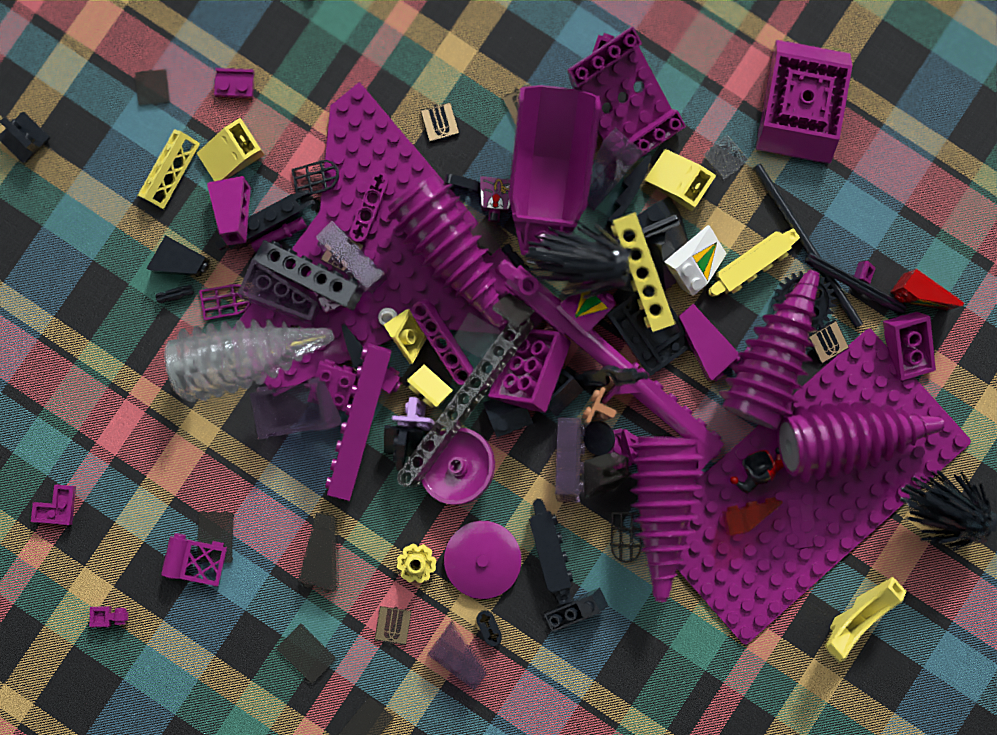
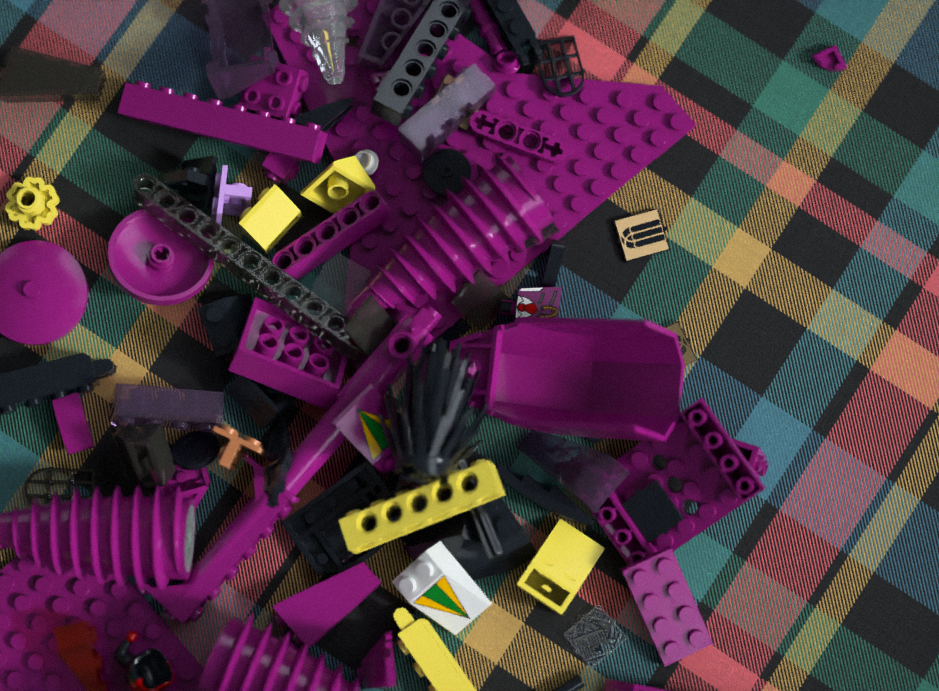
camera: 90 degrees right, 5 degrees down
(312, 216) = (507, 62): none -> magenta plate
(394, 259) = (444, 171): none -> black piece
(579, 527) = (73, 424): none -> magenta slope
(641, 113) = (652, 511): none -> black piece
(706, 104) = (667, 606): none -> magenta plate
(754, 302) = (378, 665): none -> magenta wedge

